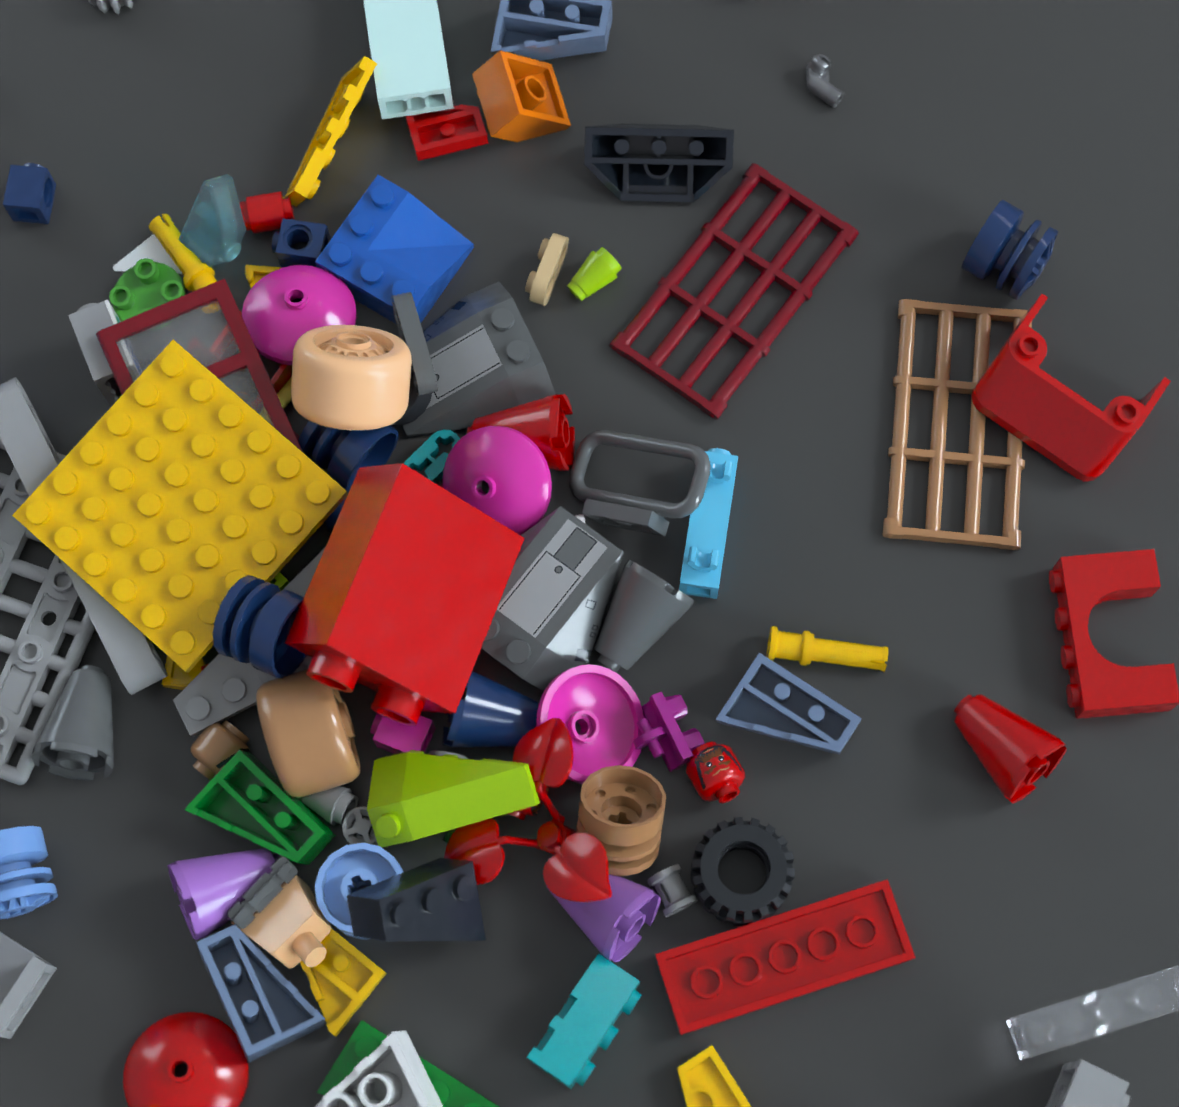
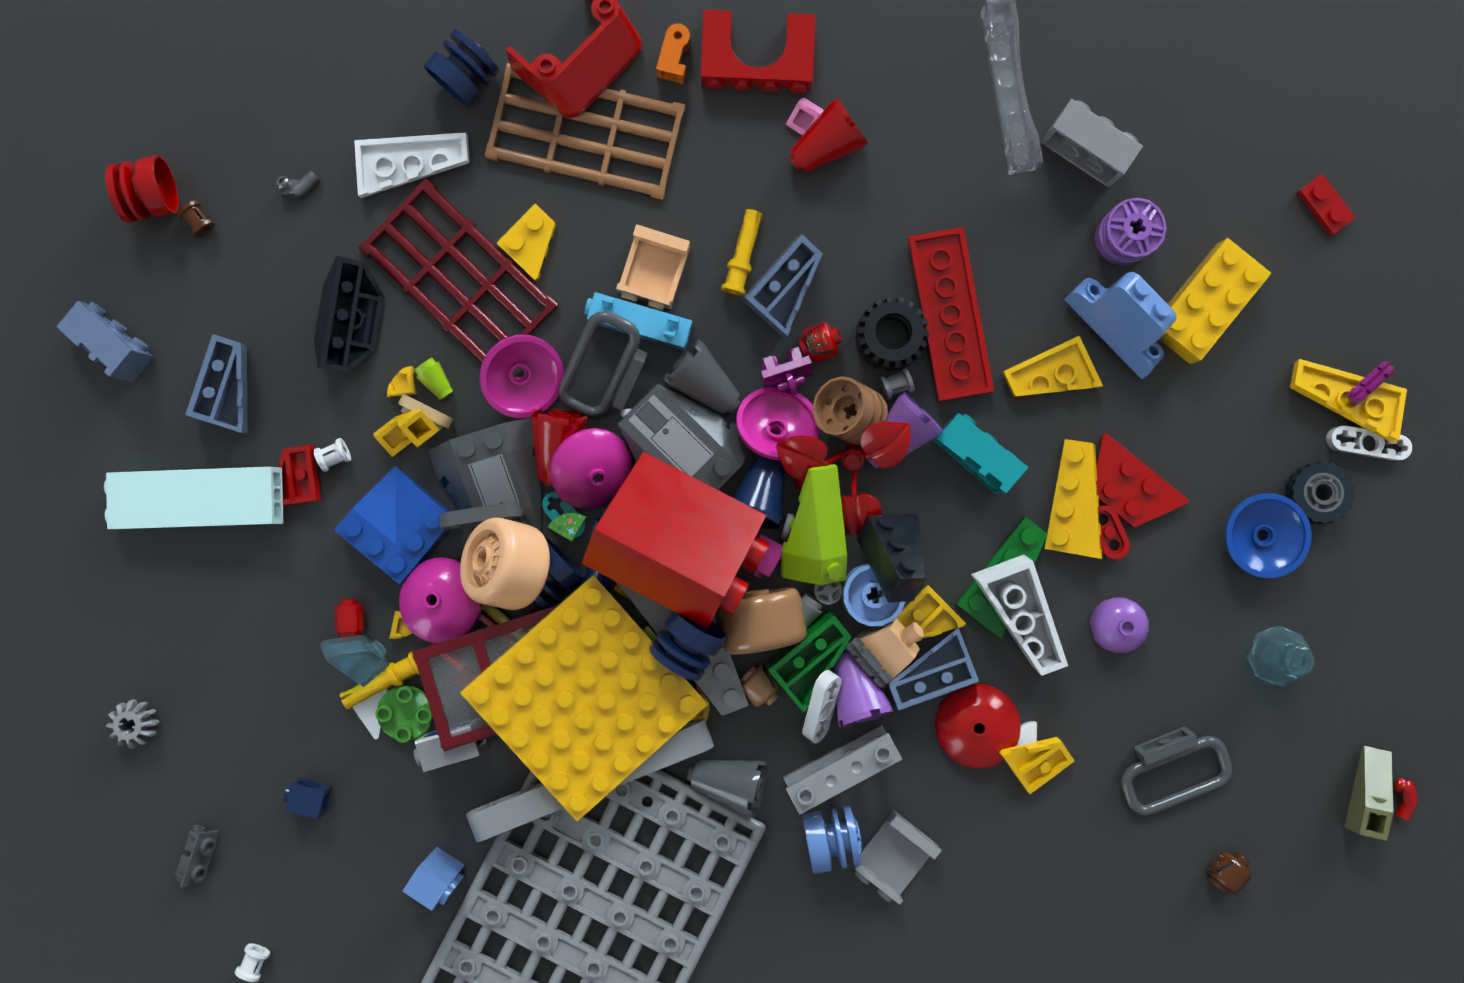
camera: 90 degrees left, 15 degrees up
(108, 873) = (841, 768): none -> light grey fence
(216, 835) = (821, 706): none -> white beam
(299, 231) = (368, 599): dark blue brick -> none
(329, 130) = (280, 559): yellow wing -> none
(419, 459) = (568, 524): none -> bright green tile
(477, 165) = (332, 455): none -> white bush
(519, 245) = (404, 429): none -> yellow slope
(520, 97) = (280, 415): orange slope -> none
(582, 239) = (403, 383): none -> yellow tile
(587, 371) = (536, 384): none -> dark pink dish
(784, 534) = (653, 268): none -> light nougat panel
(797, 370) = (529, 240): none -> yellow wing
(876, 198) = (401, 160): none -> white wing
(1038, 709) = (803, 115): none -> bright pink slope
(1087, 520) = (673, 49): none -> orange leg

